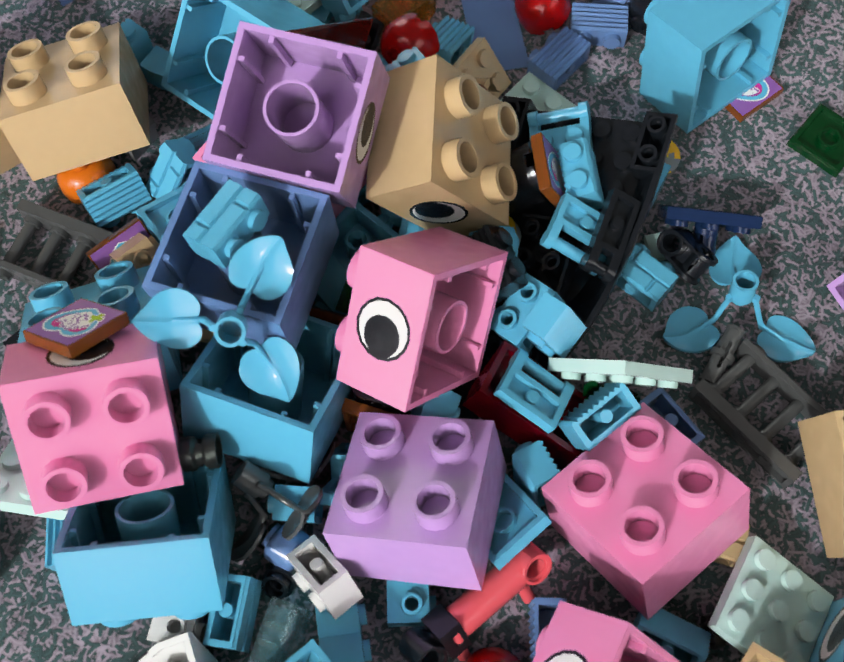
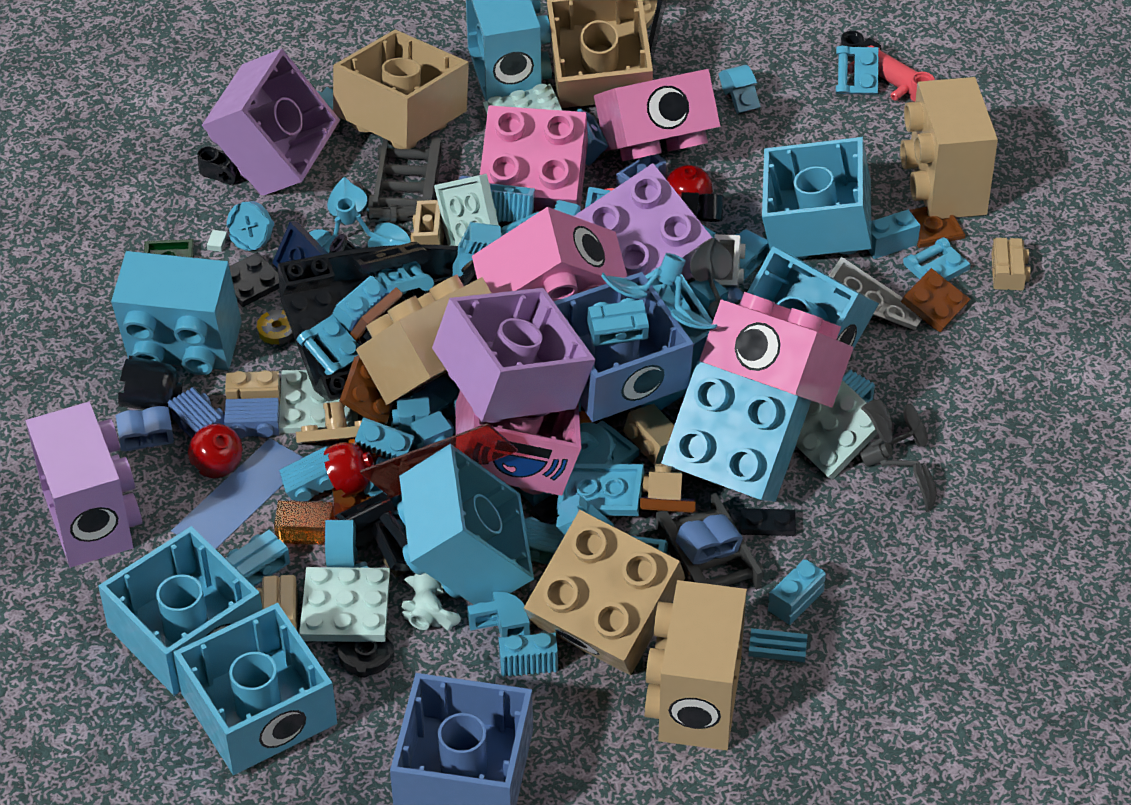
camera: 135 degrees left, 20 degrees down
(51, 241) = (708, 539): none -> medium blue brick
(76, 328) = (747, 369): tile -> none
(588, 75) = (253, 385): none -> tan brick
(658, 348) = (428, 224): none -> tan brick
(740, 181) = (253, 279): none -> black plate
(805, 217) = (249, 225): none -> medium azure tile
(821, 193) = (217, 240): none -> light aqua piece

